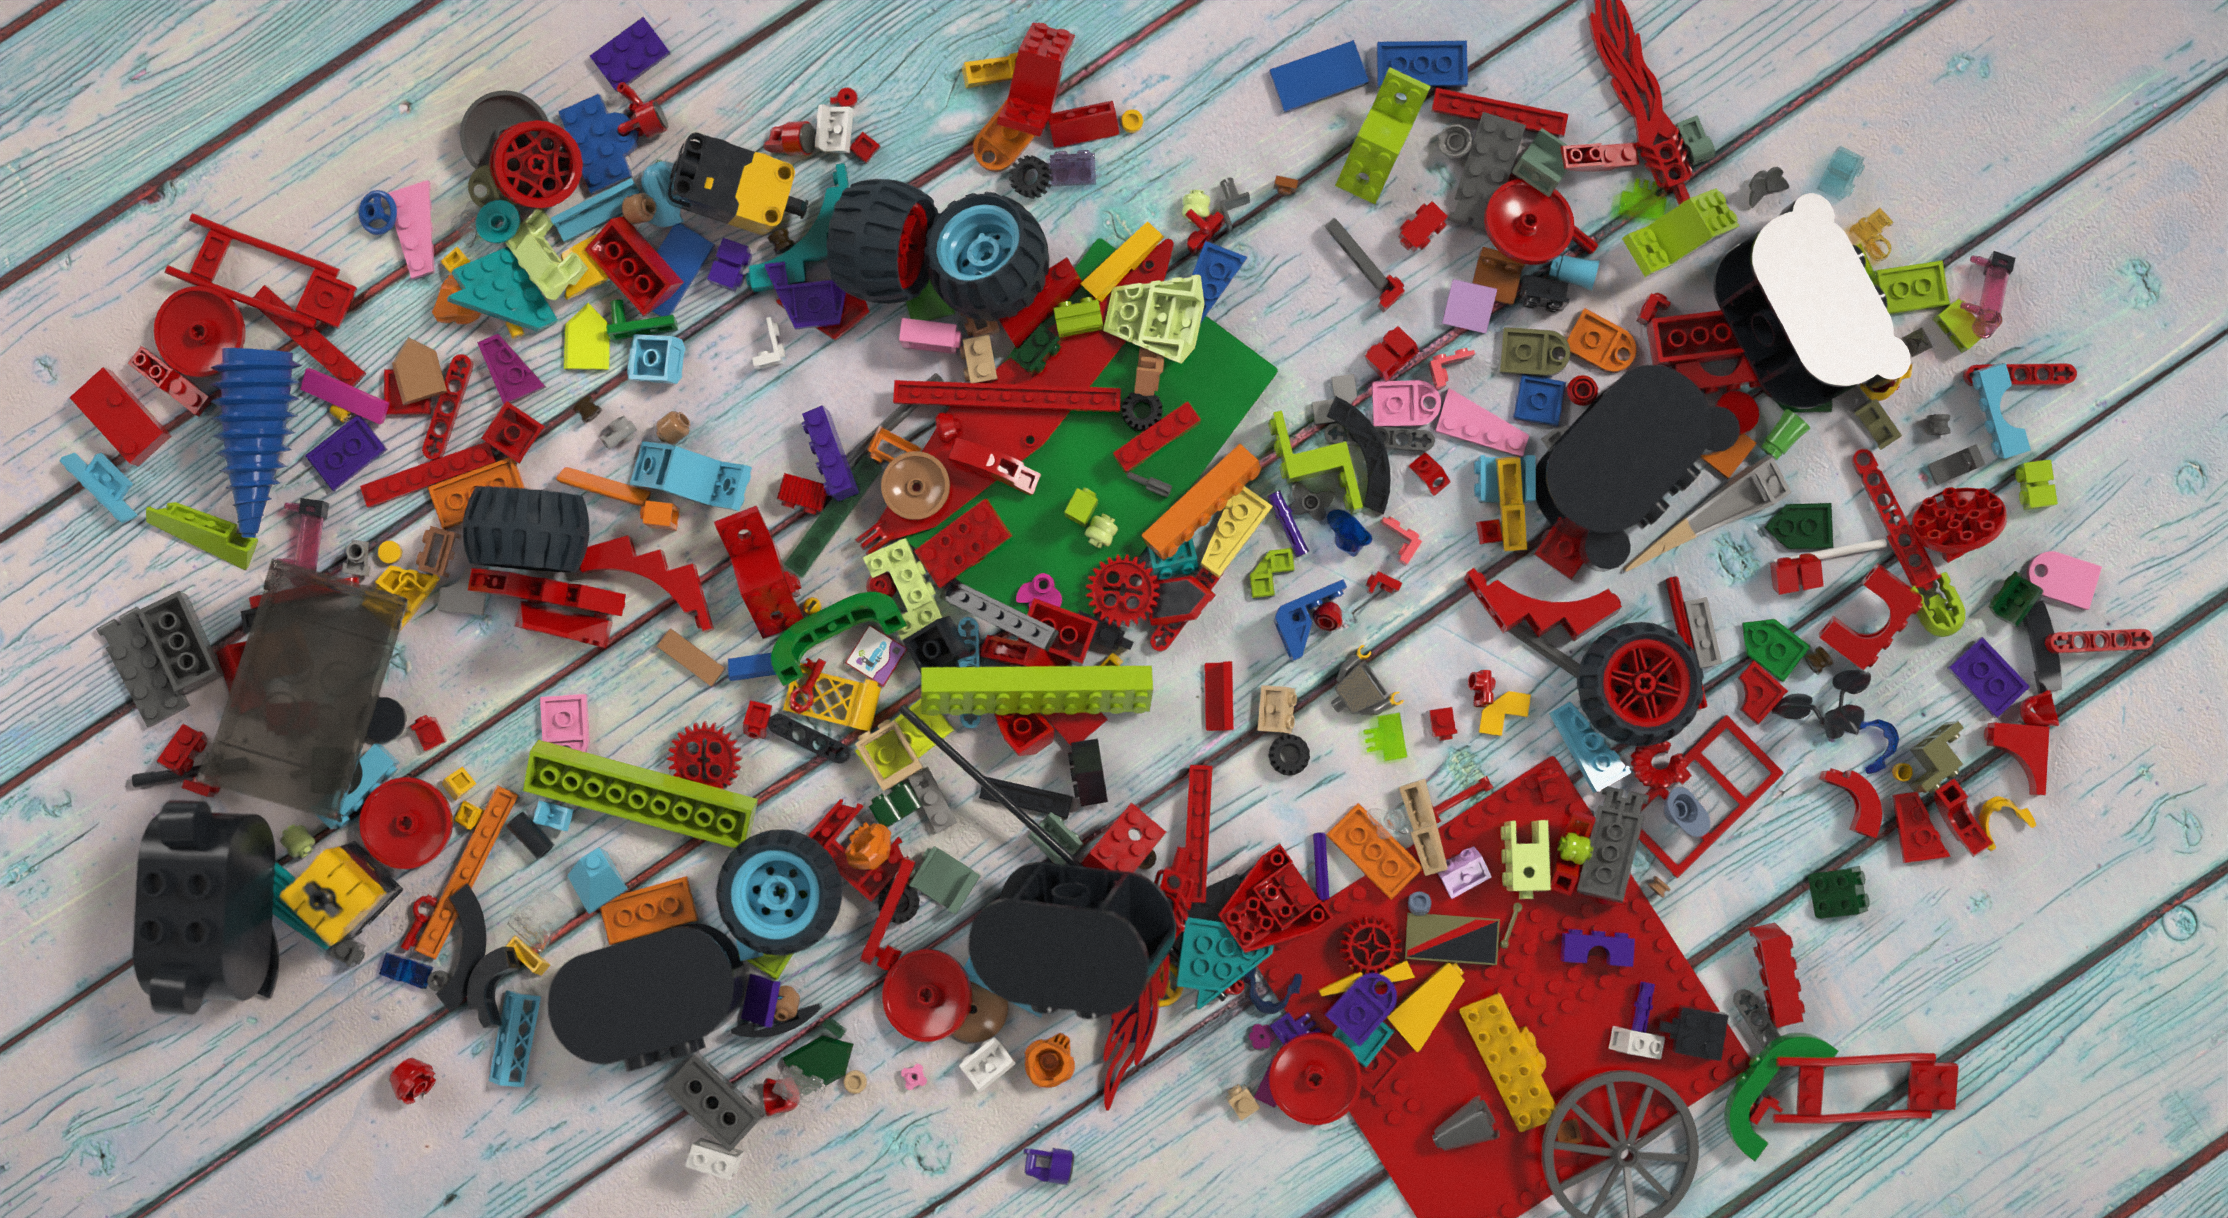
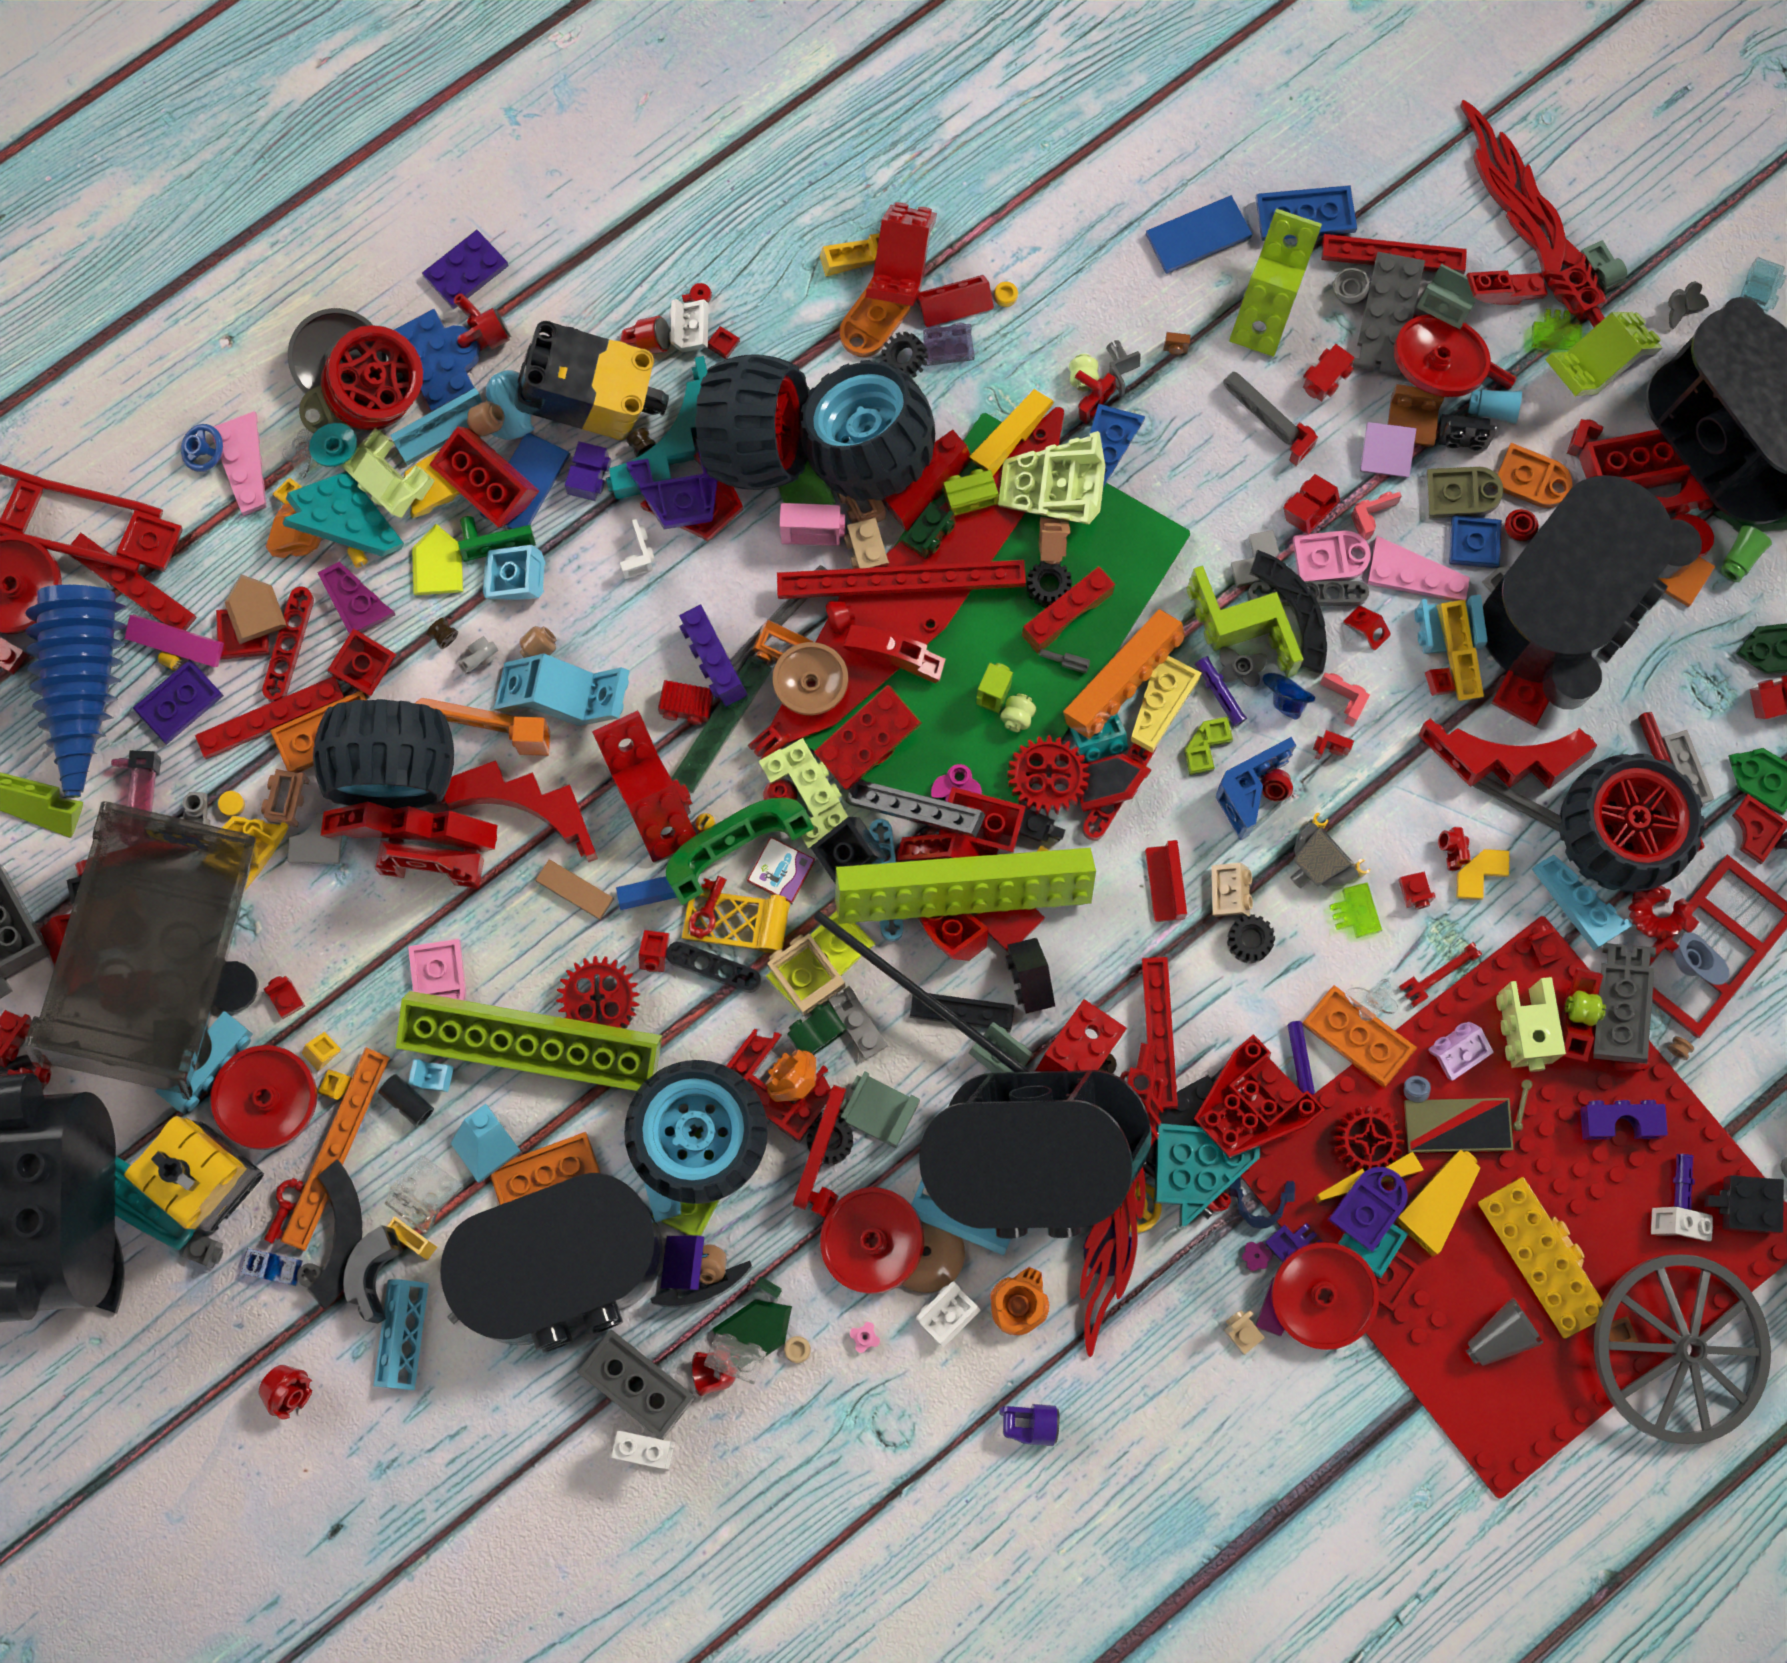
camera: 10 degrees left, 10 degrees down
(297, 841) = (140, 1129): yellowish green piece -> none
(1424, 825) = (1411, 1002): tan slope -> none
(1745, 494) = (1710, 619): light grey plate -> none

